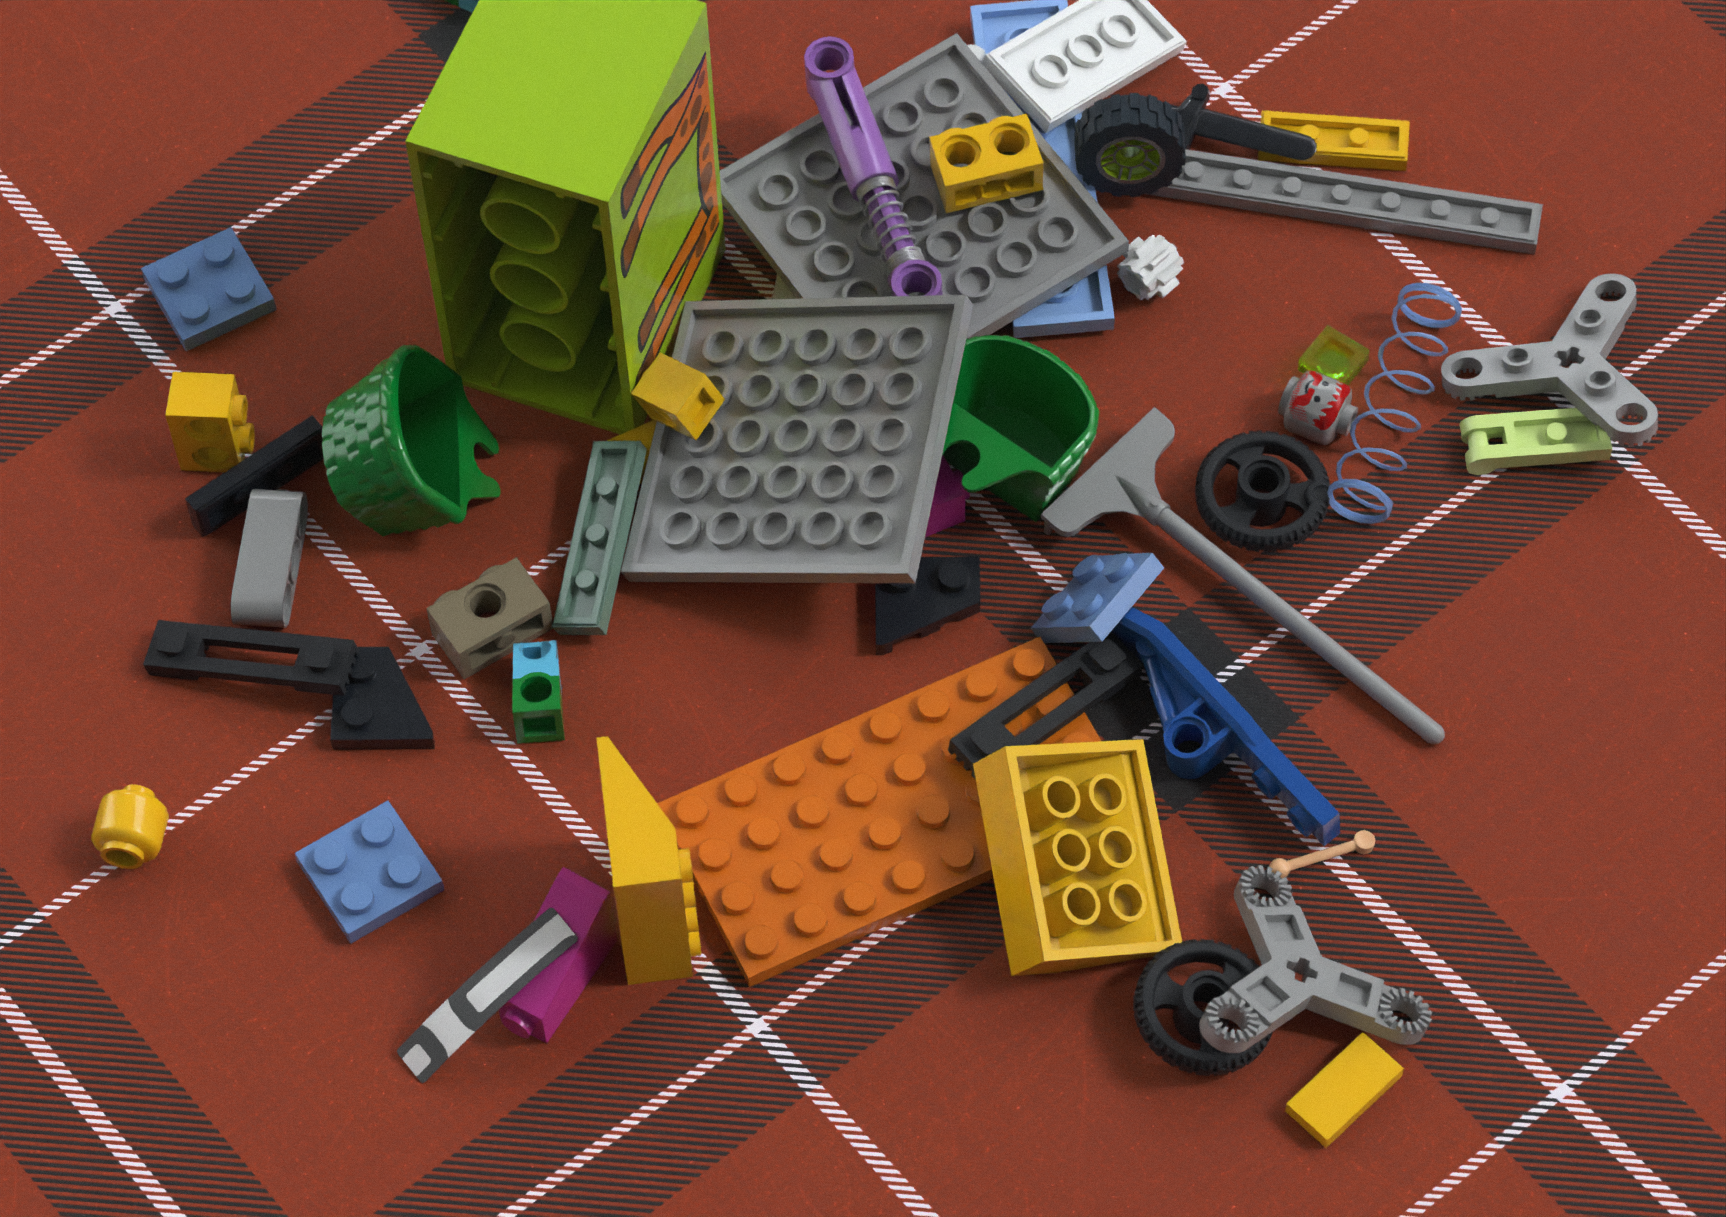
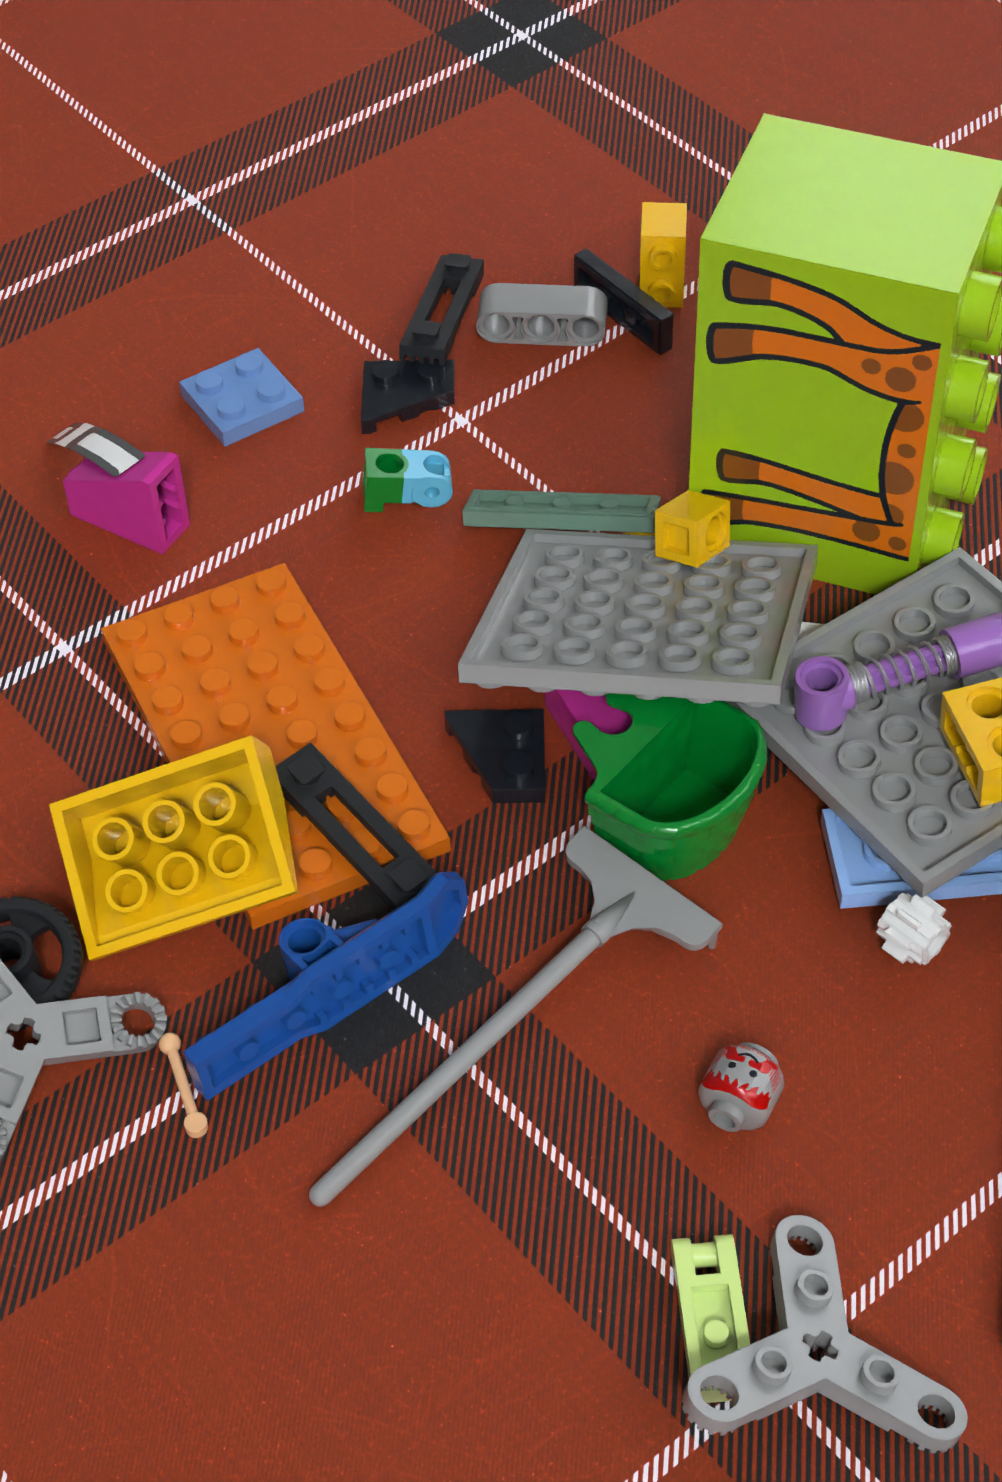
camera: 90 degrees right, 10 degrees down
(129, 826) = (285, 251): yellow head -> none
(405, 445) = (632, 365): green piece -> none
(479, 641) = (479, 444): dark tan brick -> none
(648, 877) = (174, 498): yellow slope -> none
(1096, 597) = (476, 867): medium blue plate -> none
(1263, 509) = (629, 1050): black wheel -> none
(1334, 356) = (810, 1107): clear neon green plate -> none
(1445, 296) = (611, 1114): light blue piece -> none

